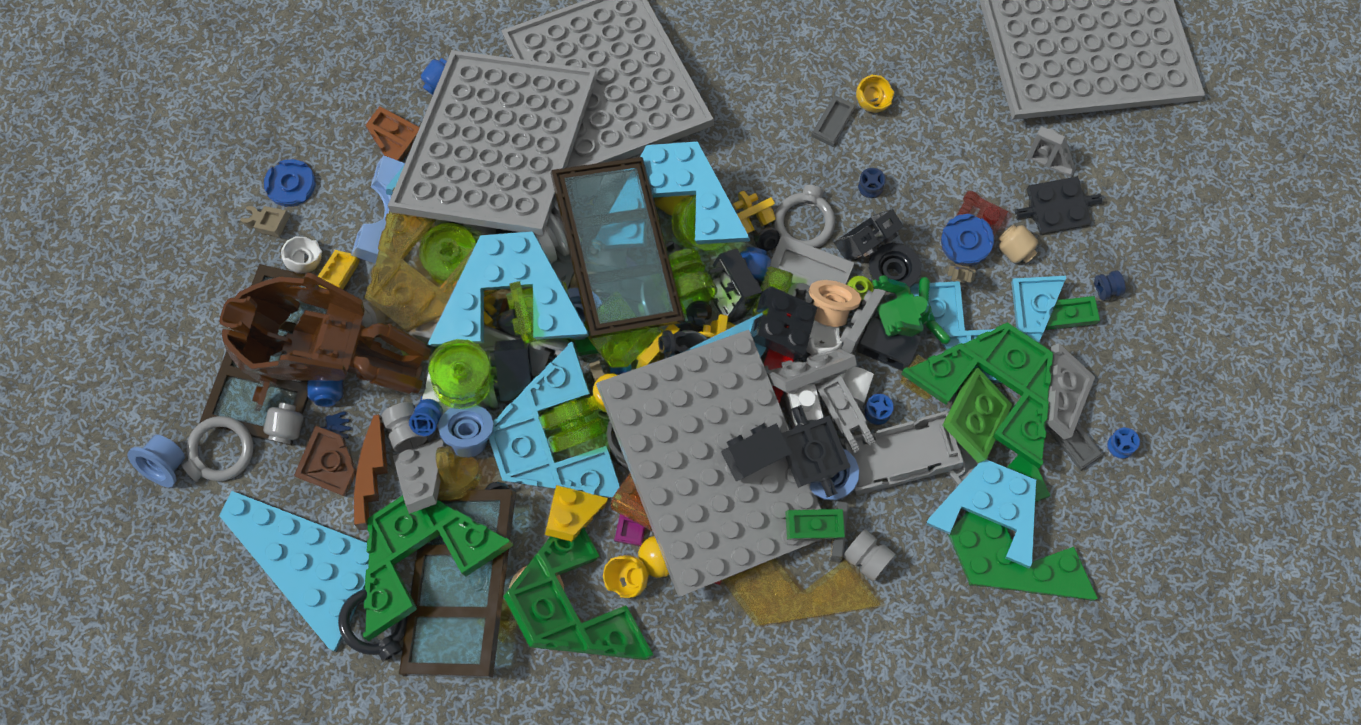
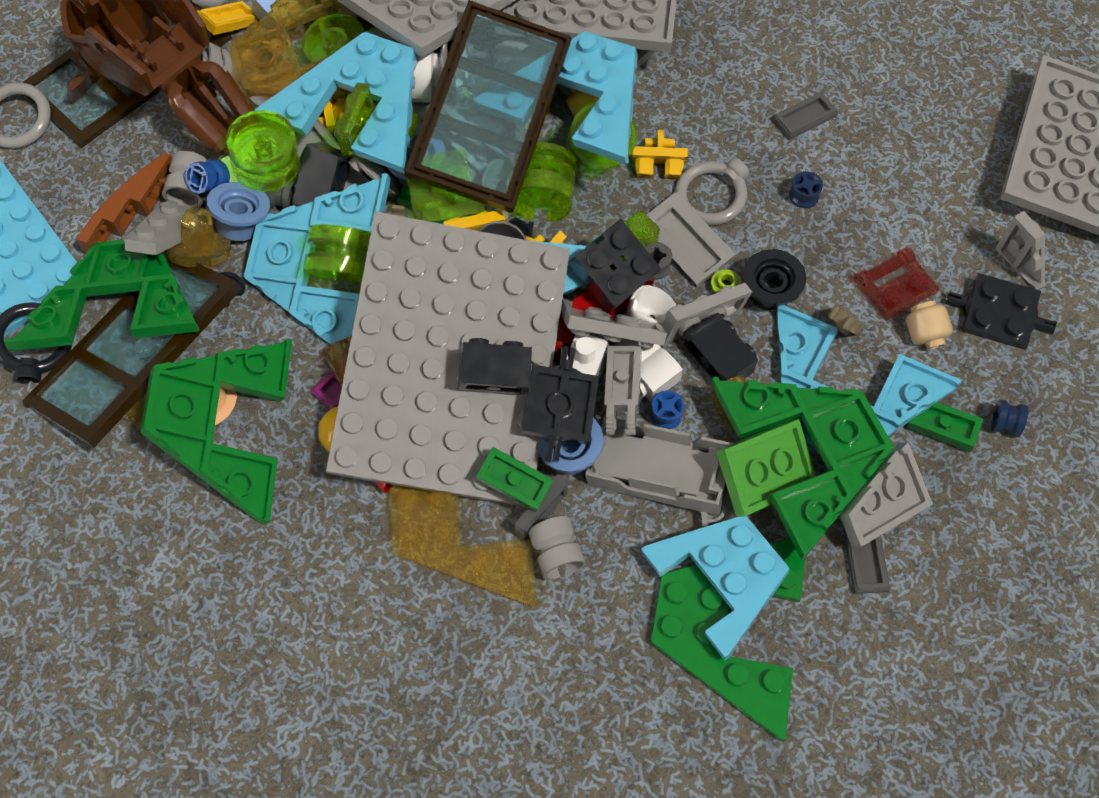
camera: 30 degrees right, 5 degrees down
(283, 423) = (81, 119): light grey head -> none
(325, 392) = (144, 111): blue head -> none
(327, 462) = (96, 174): reddish brown plate -> none
(335, 424) = (129, 152): dark blue piece -> none
(571, 512) = (283, 338): yellow wing -> none
(631, 569) = (294, 418): yellow hair -> none
(668, 345) = (479, 220): black plate -> none
(700, 312) = (545, 222): black plate -> none
(735, 285) = (594, 212): black piece -> none
(757, 262) = (624, 202): blue head -> none
(767, 238) = (659, 188): black plate -> none
(833, 302) = (684, 277): light nougat piece -> none
(863, 241) = (751, 237): black piece -> none
(871, 88) = (864, 102): yellow hair -> none
(908, 312) = (758, 323): green piece -> none
(967, 239) = (873, 291): blue tile -> none
(1128, 438) = (927, 585): blue wheel -> none

